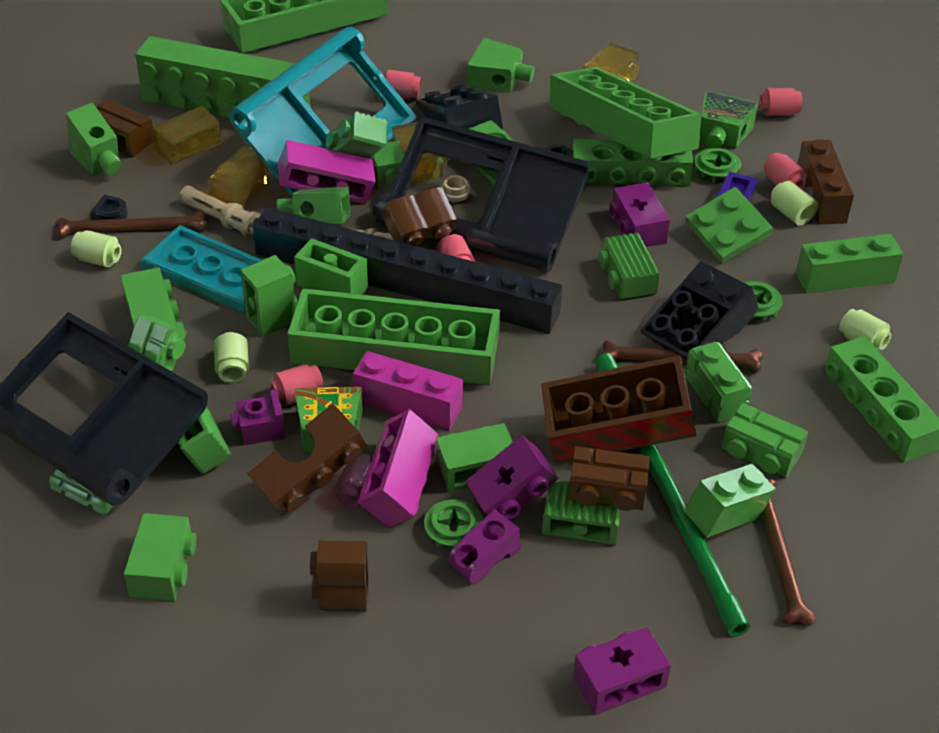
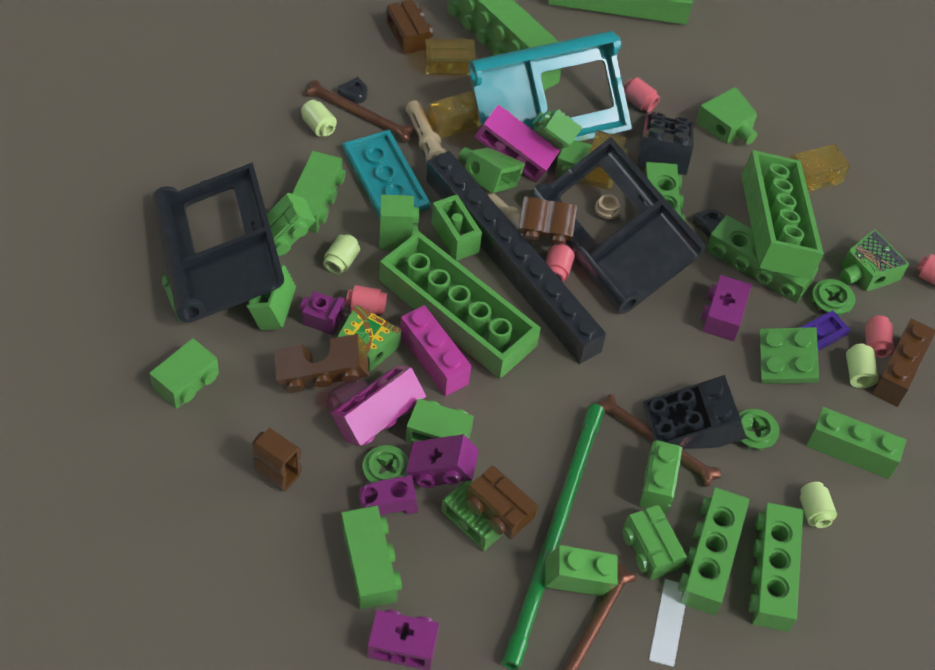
camera: 30 degrees right, 10 degrees up
(92, 141) = (377, 38): bright green torso -> none
(516, 615) = (370, 557): none -> bright green brick
(618, 408) = (559, 455): reddish brown brick -> none
(628, 266) = (680, 346): bright green brick -> none
(816, 406) = (709, 593): none -> bright green brick
(836, 505) = (668, 625): none -> white sticker

